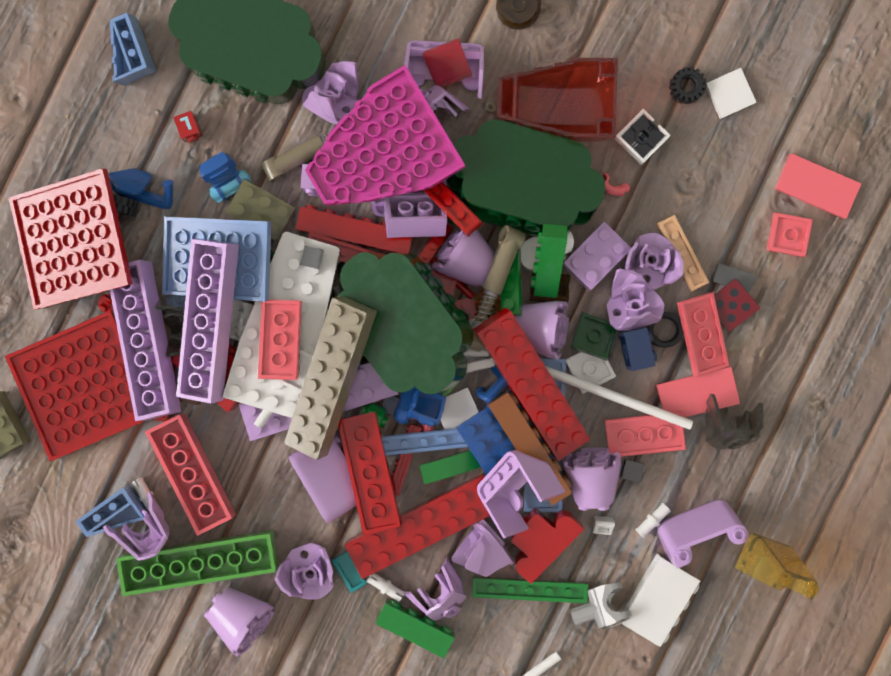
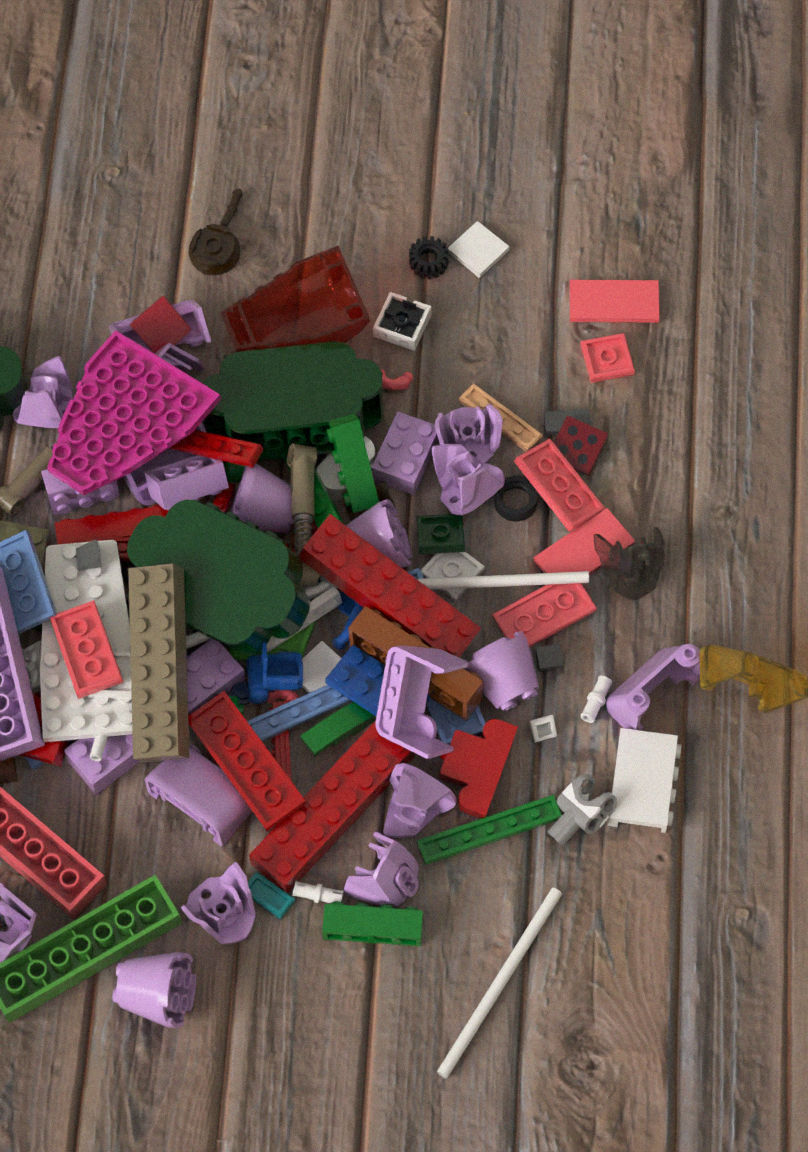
camera: 25 degrees left, 25 degrees down
(637, 349) = (492, 523): dark blue brick -> none

